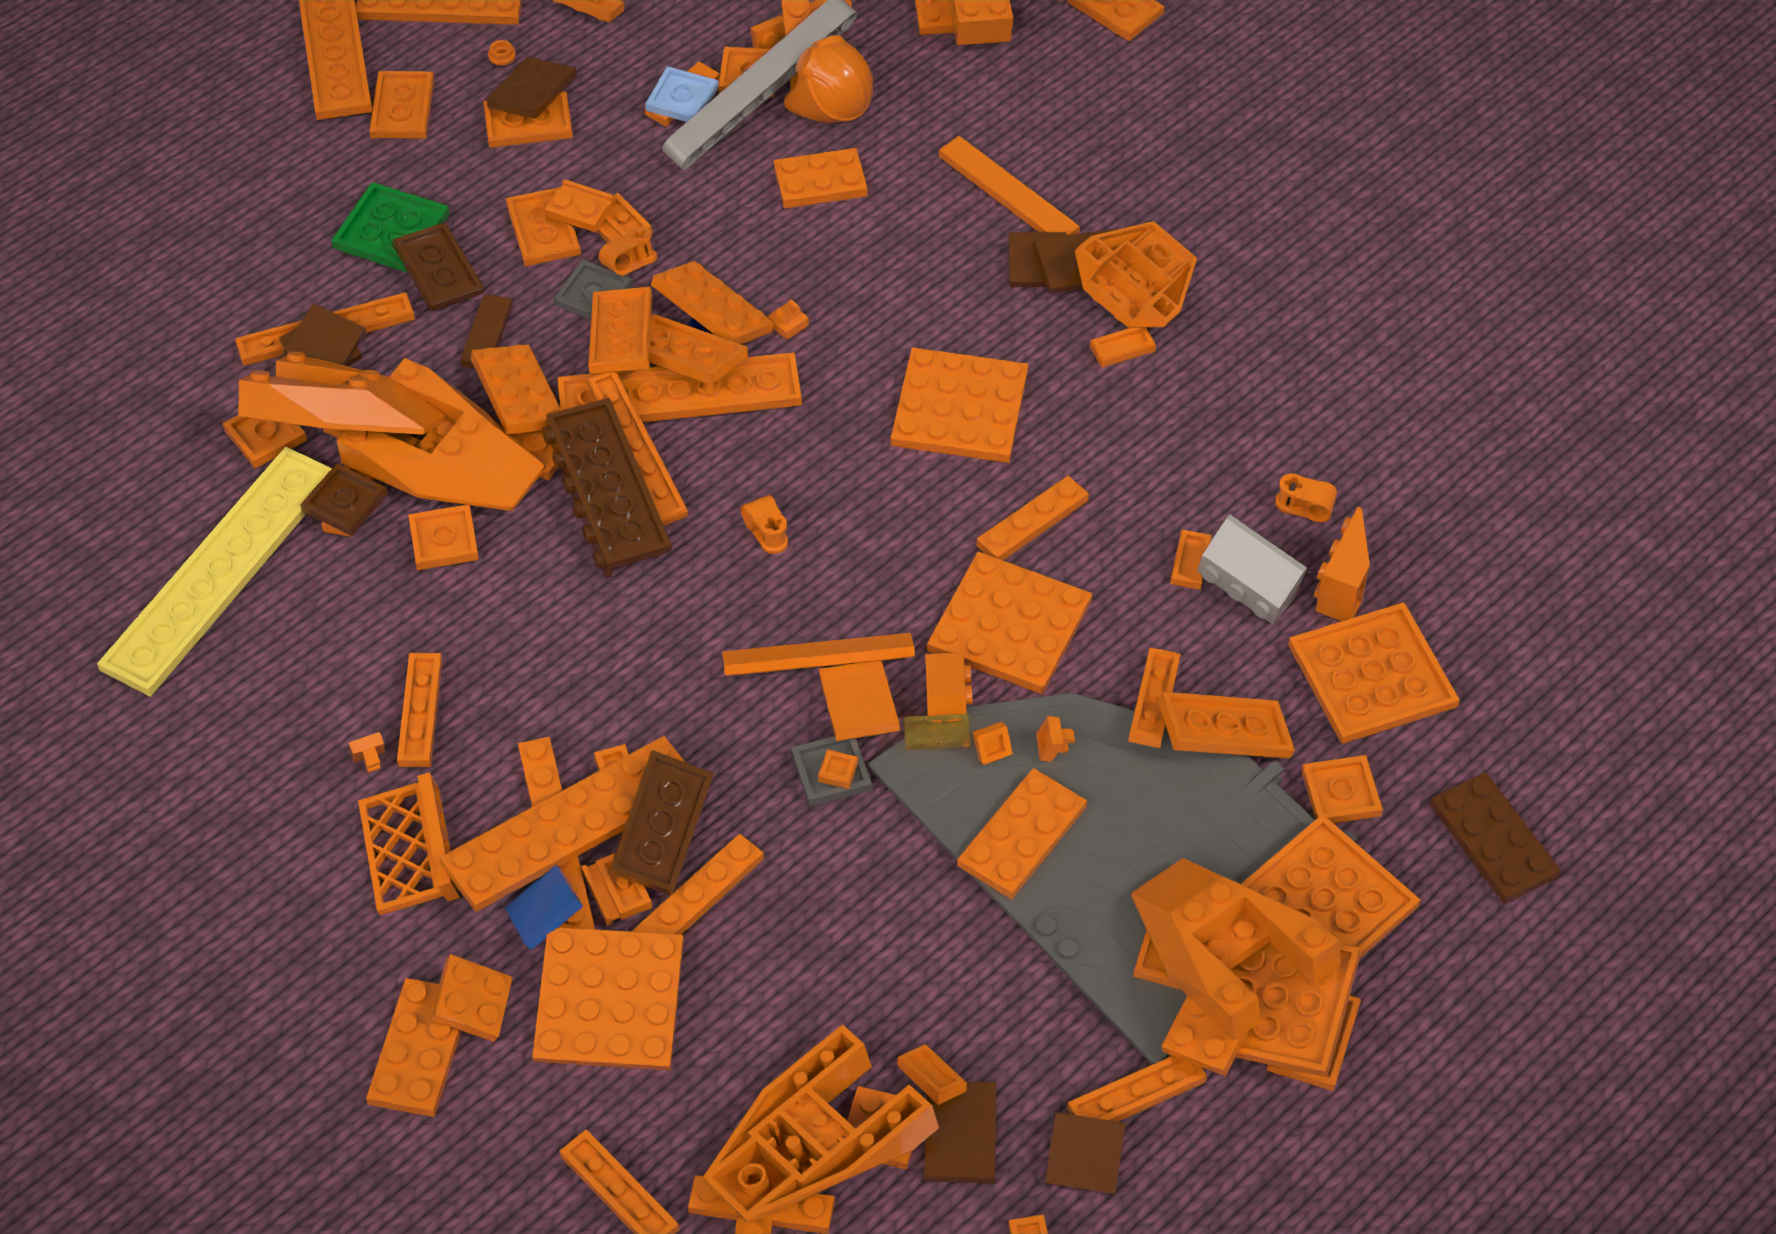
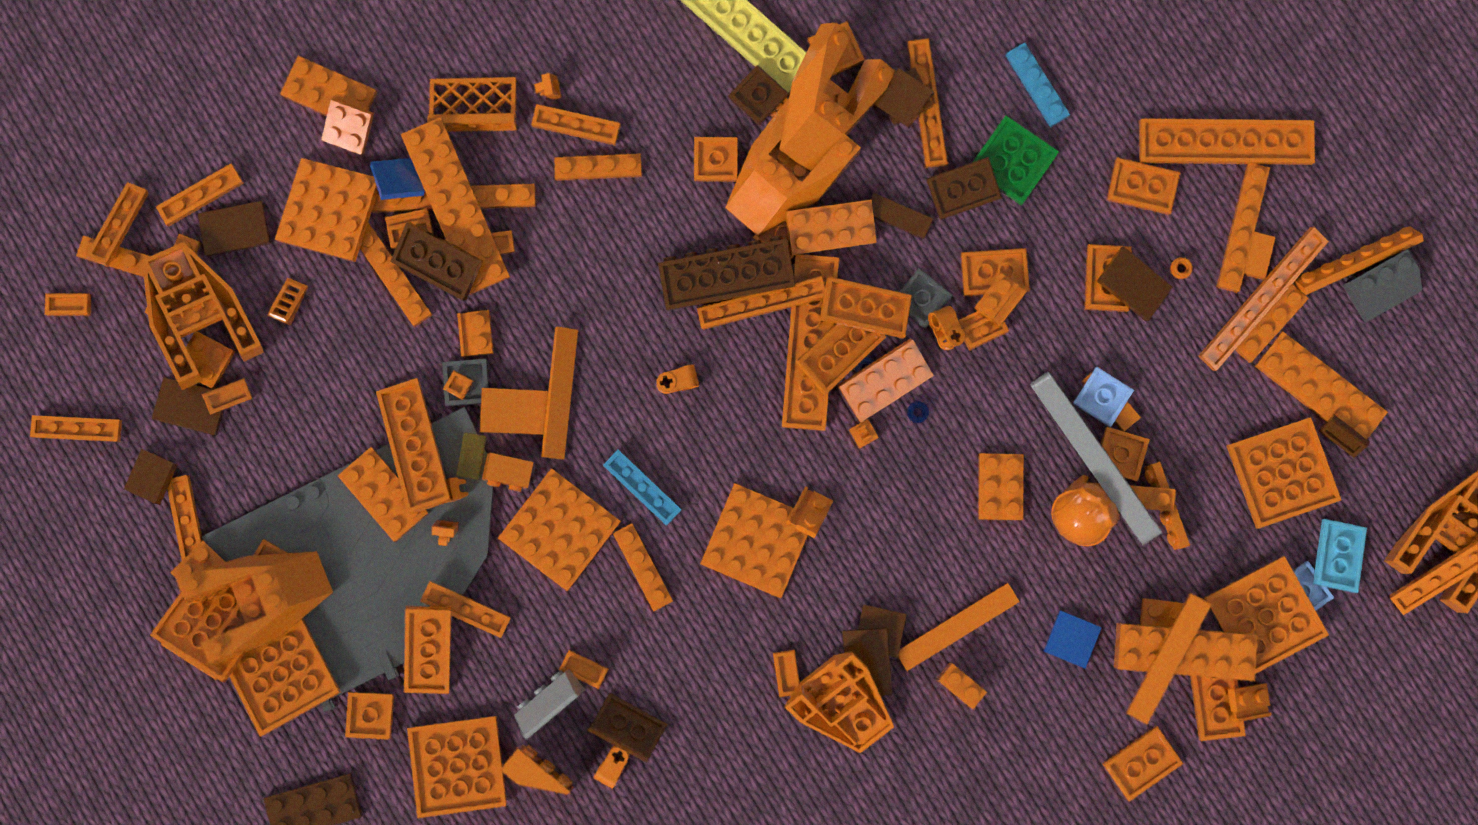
camera: 105 degrees right, 30 degrees up
(283, 223) = (1037, 85): none -> dark azure plate
(478, 675) = (598, 167): none -> orange plate
(663, 1132) = (234, 228): none -> reddish brown tile
(745, 269) = (918, 405): none -> clear blue plate
(756, 776) = (475, 333): none -> orange plate
(773, 1041) = (291, 312): none -> orange slope
(907, 348) = (809, 512): none -> orange plate
(924, 536) = (642, 487): none -> dark azure plate
(941, 802) = (413, 446): none -> orange plate
(989, 85) = (1072, 639): none -> blue tile
(1080, 169) = (961, 685): none -> orange brick
(1251, 485) = (628, 727): none -> reddish brown tile

